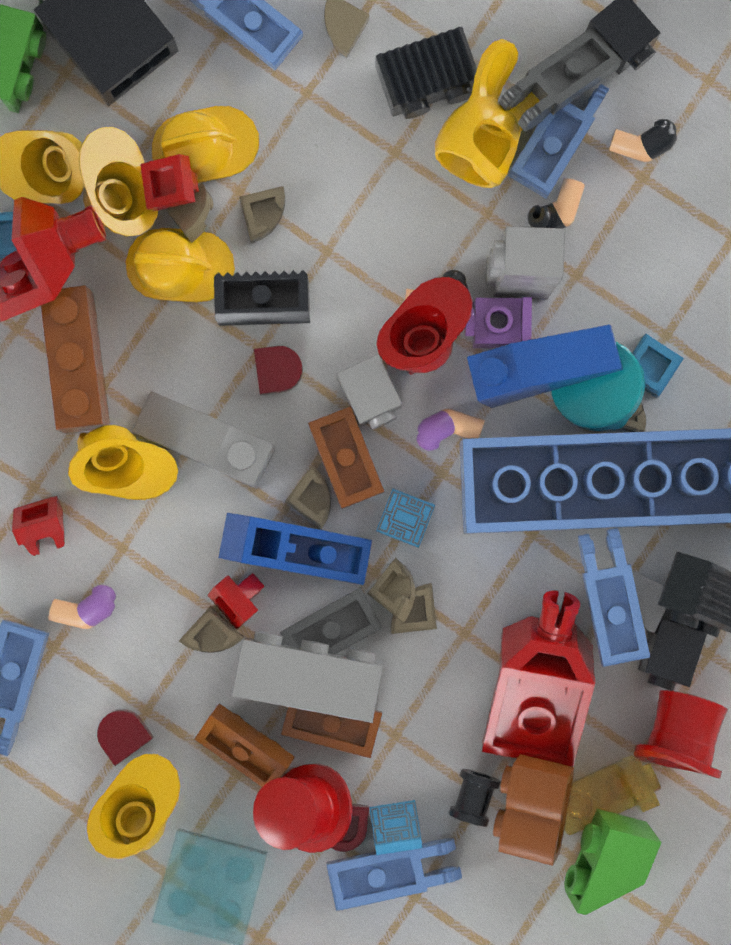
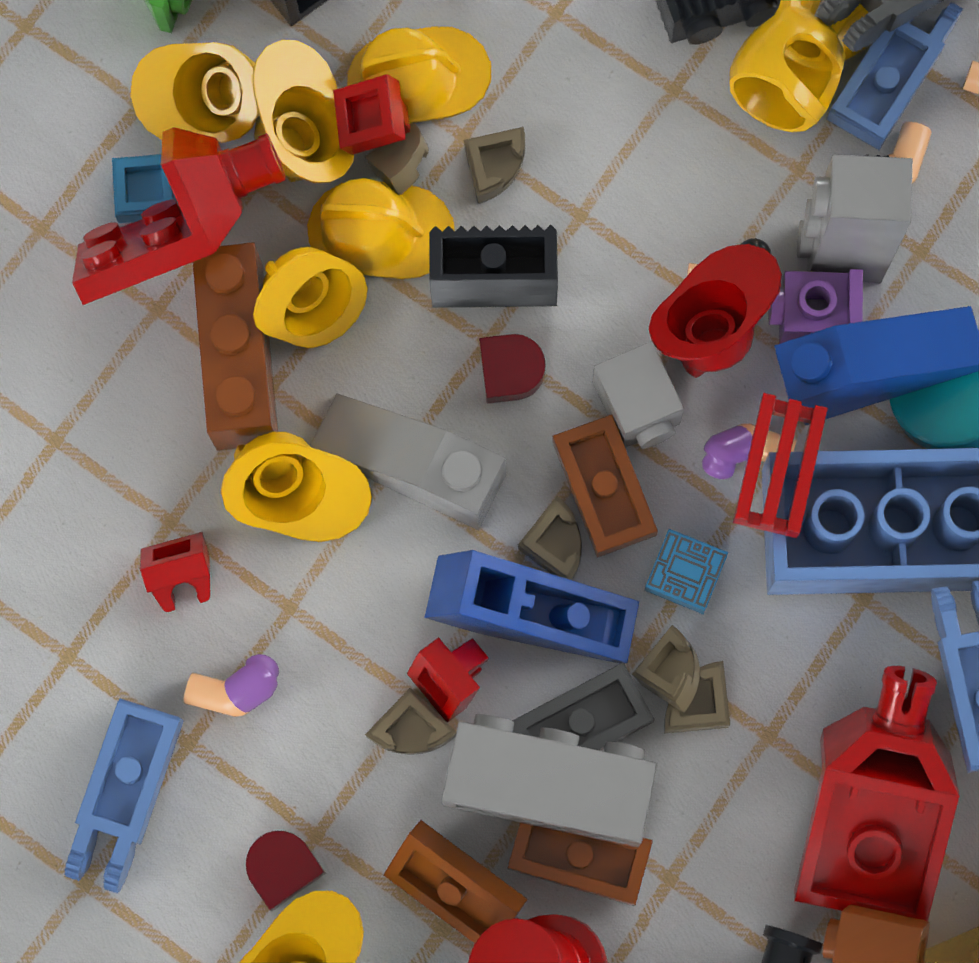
camera: 10 degrees right, 10 degrees down
(126, 323) = (309, 297): none -> yellow piece
(479, 410) = (792, 413): none -> red tile

